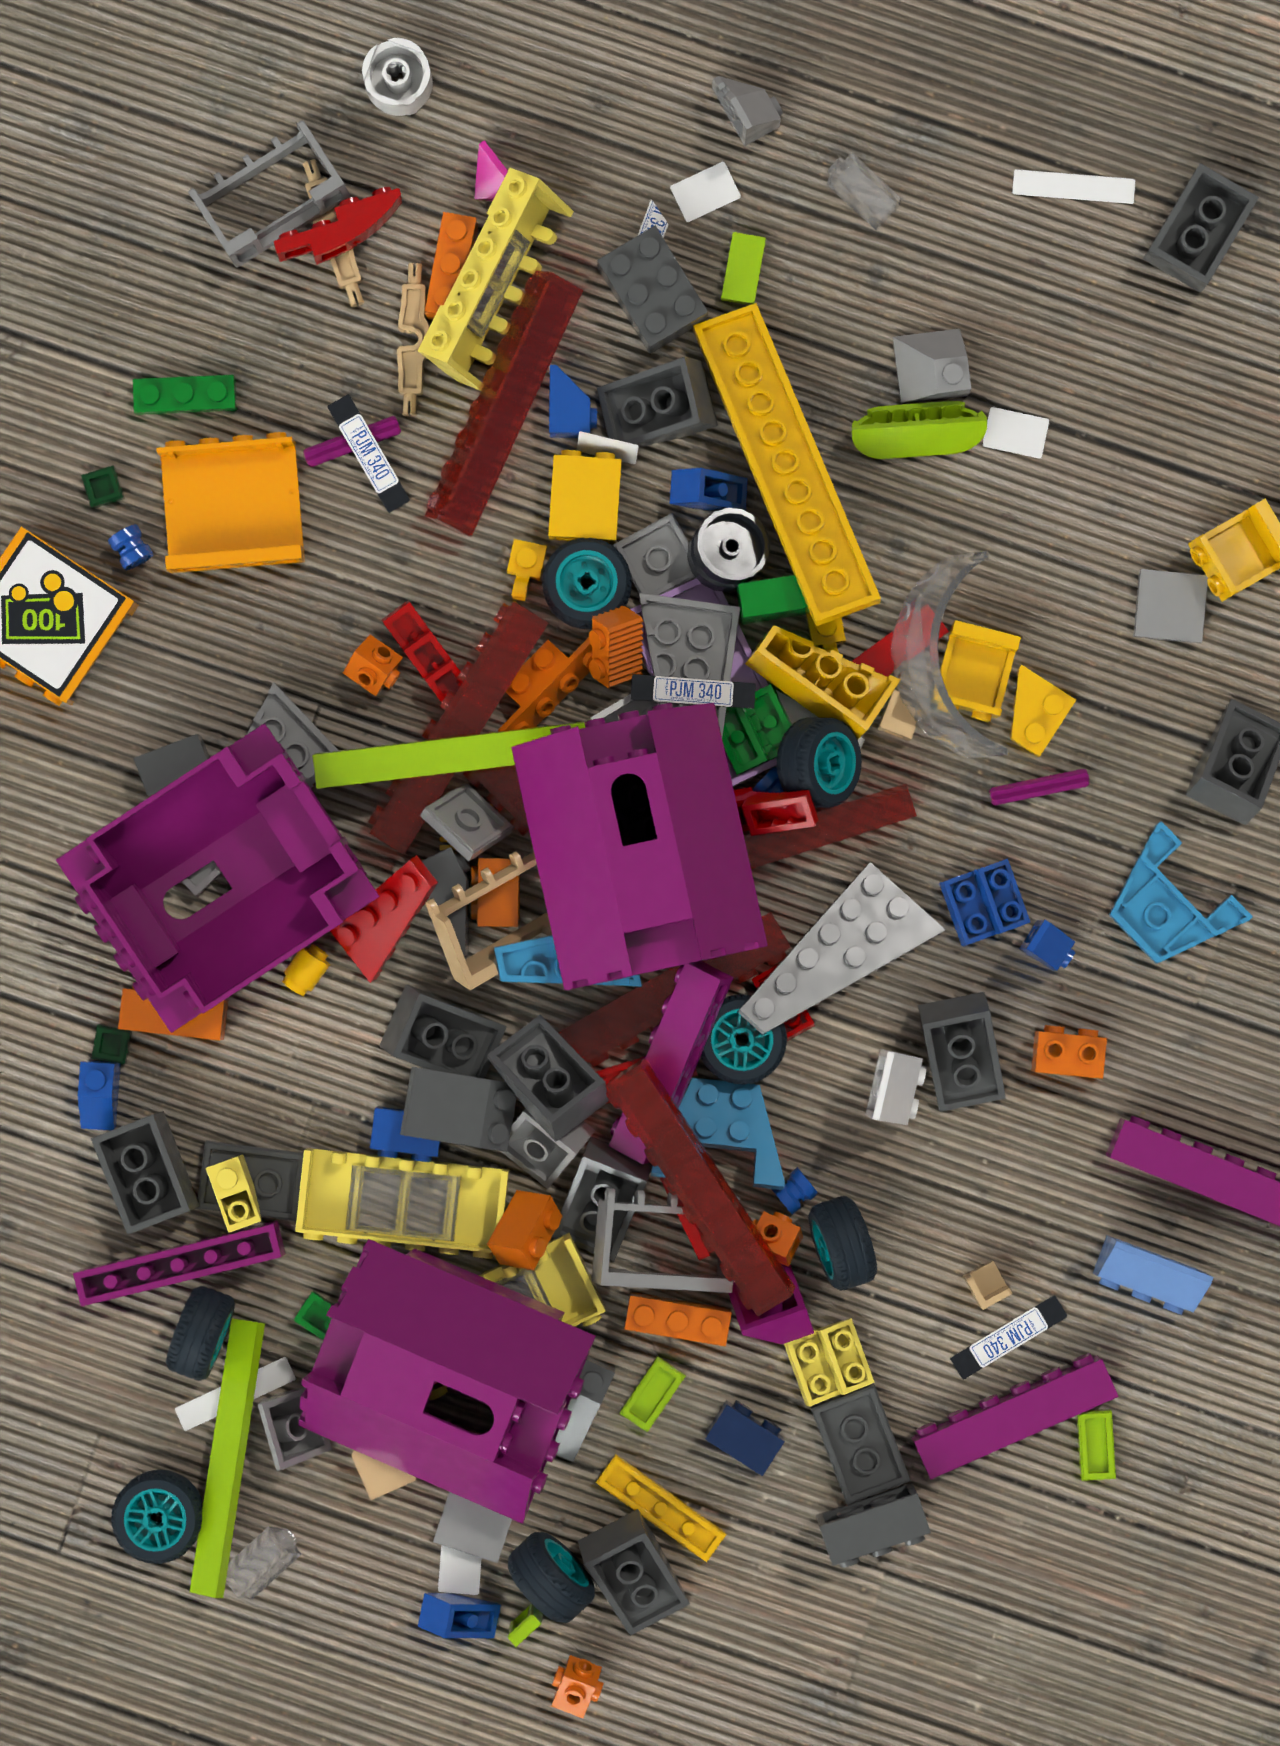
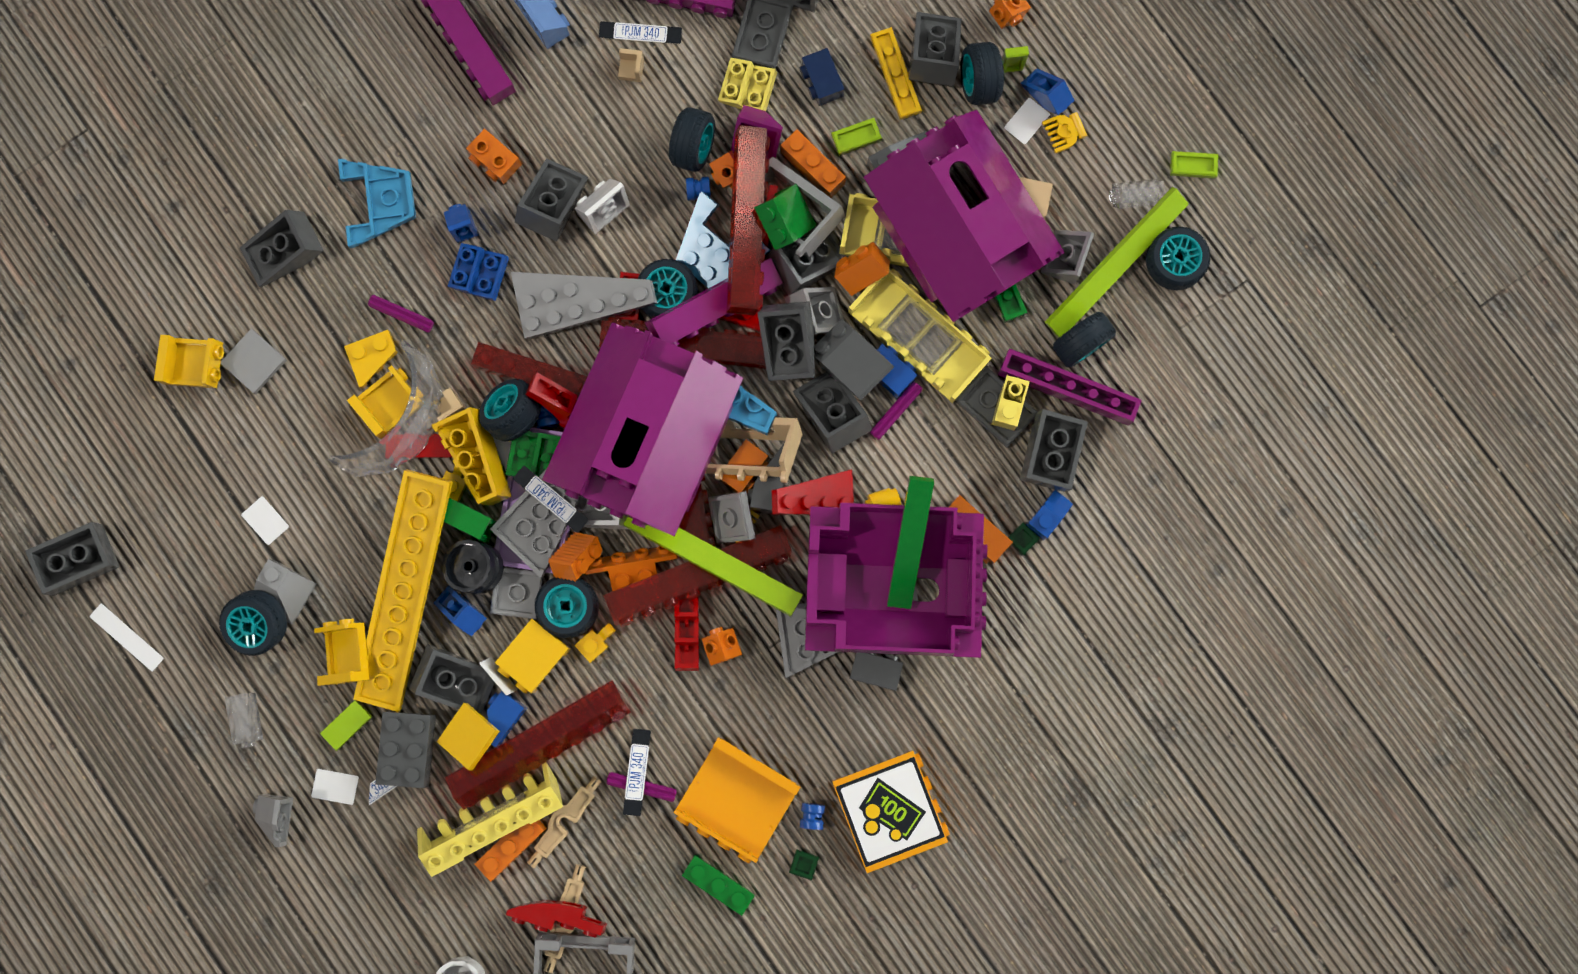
camera: 145 degrees left, 5 degrees down
(206, 1406) = (1108, 301): white sticker -> none
(219, 1651) = (1194, 164): none -> lime tile
(231, 936) = (910, 542): none -> green tile
(367, 1090) = (896, 410): none -> magenta axle
(402, 1586) = (1067, 129): none -> yellow piece
(472, 1528) = (1009, 132): light grey tile -> none
(489, 173) = (448, 885): dark pink slope -> none
(589, 354) = (468, 736): none -> yellow tile
(655, 1224) = (785, 217): none -> green panel
(803, 346) = (344, 652): none -> yellow panel
(918, 430) = (316, 559): lime brick -> none
(934, 305) = (253, 622): none -> black wheel

